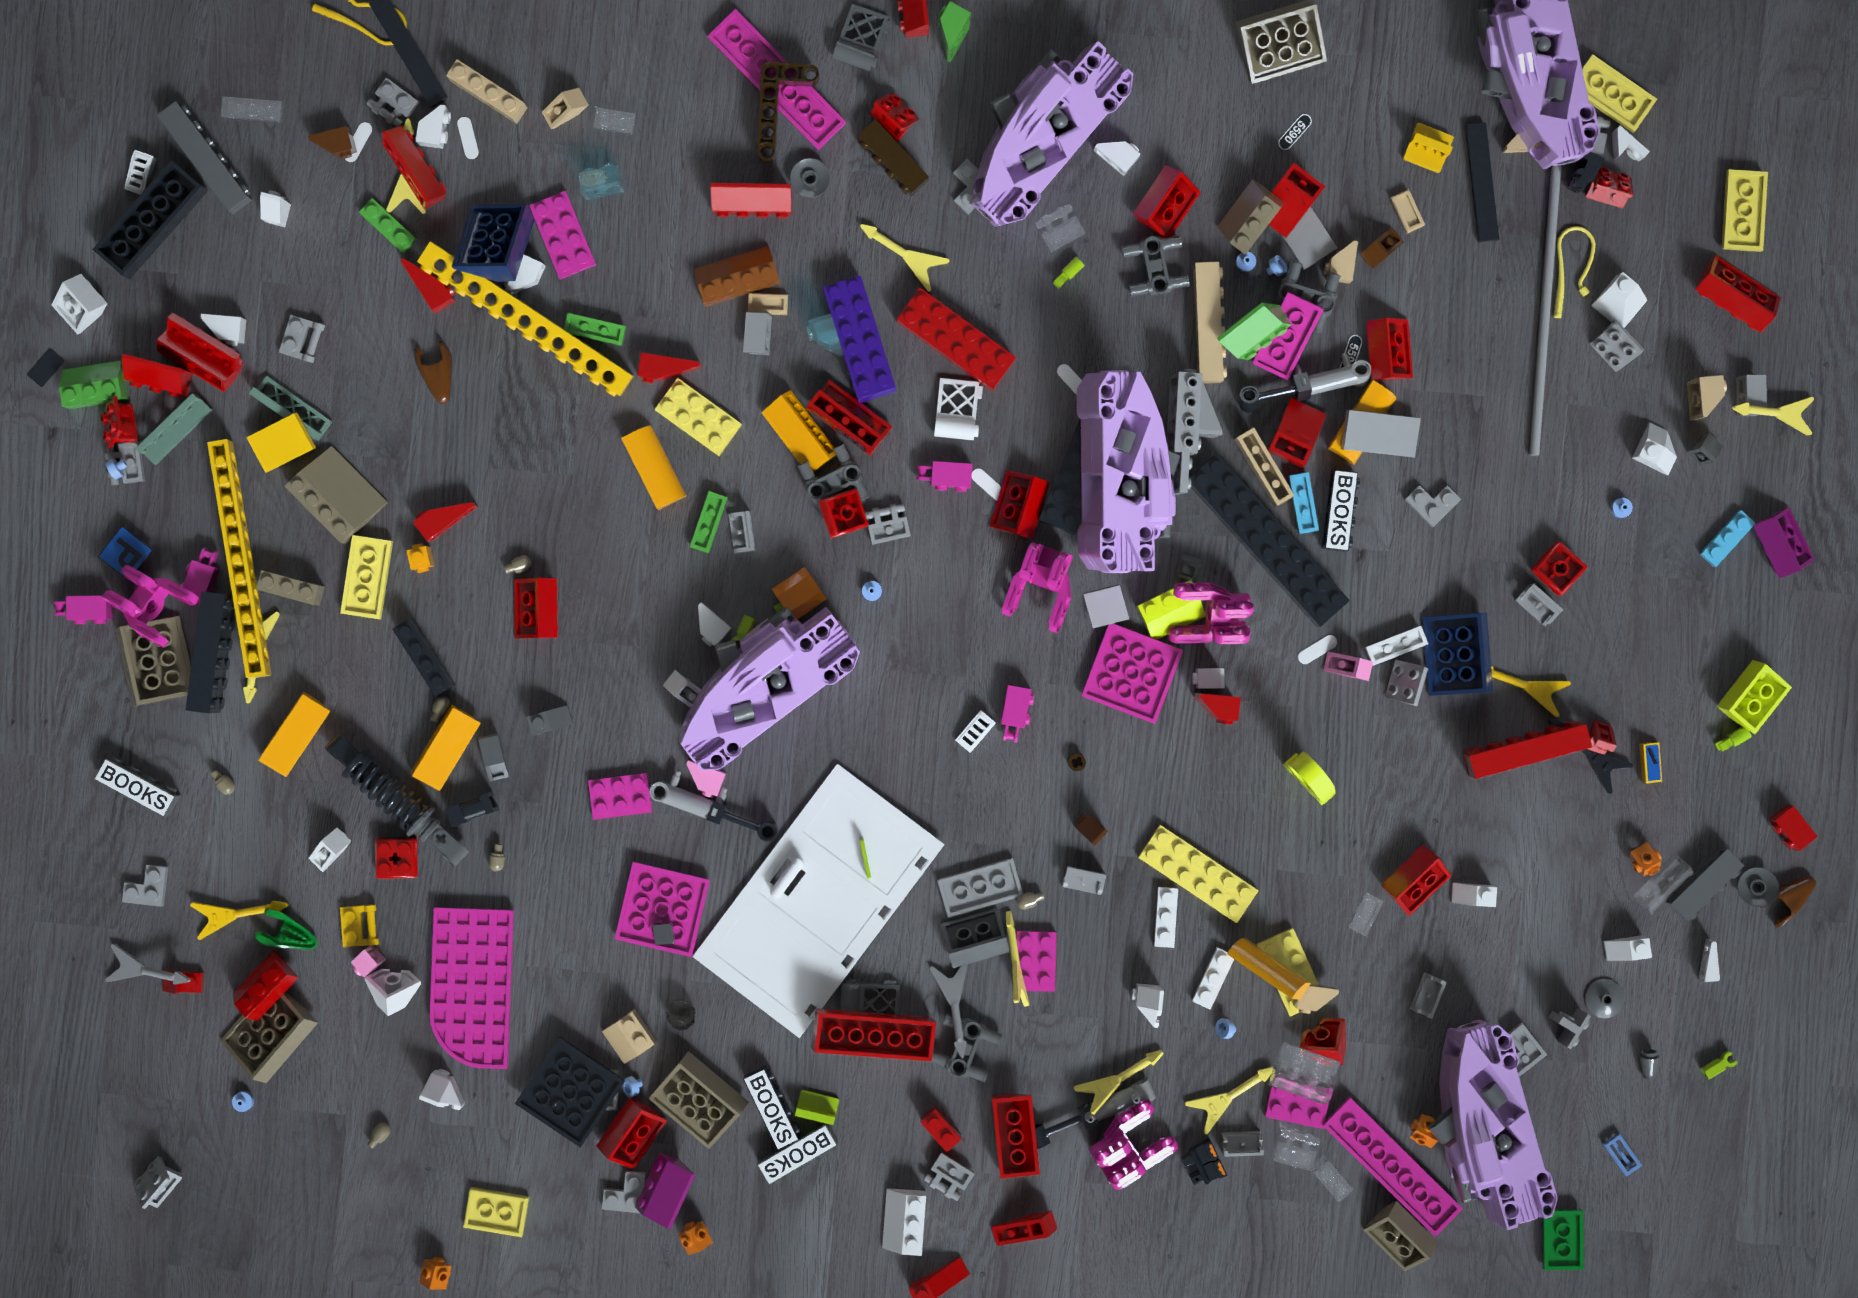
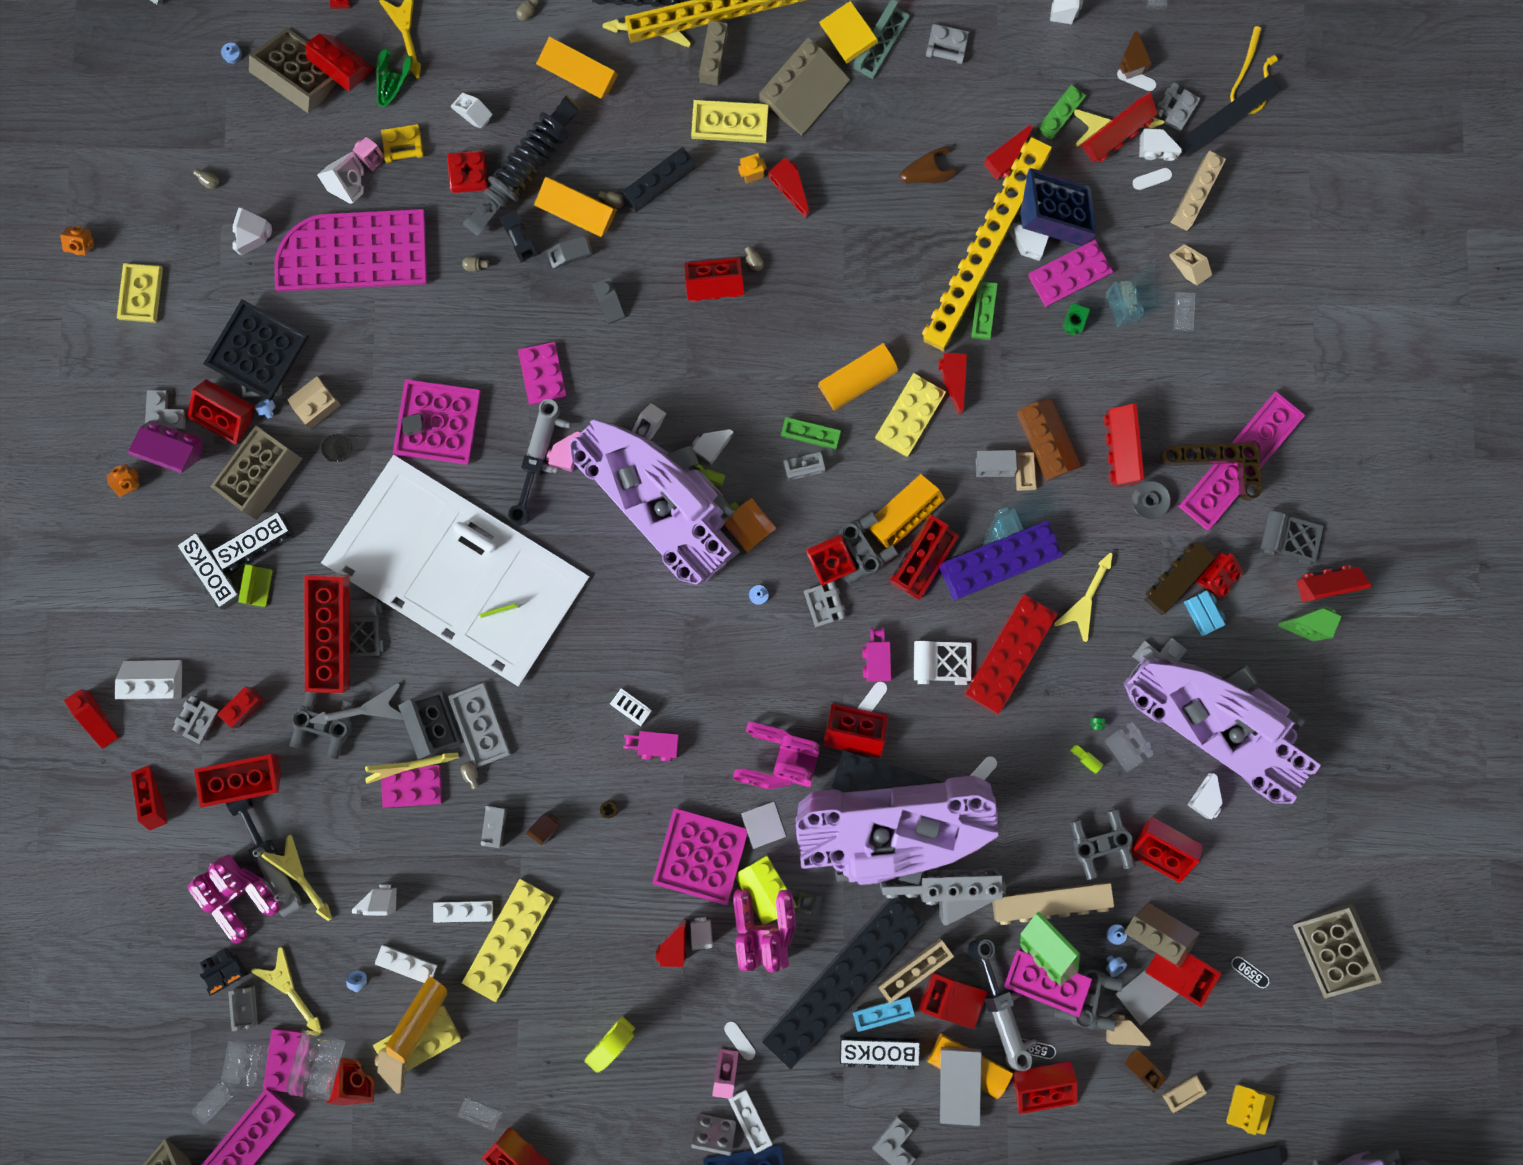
camera: 85 degrees right, 5 degrees down
(605, 231) = (1081, 314): none -> green brick
(930, 135) = (1205, 613): none -> medium azure brick
(1033, 257) = (1098, 723): none -> green plate

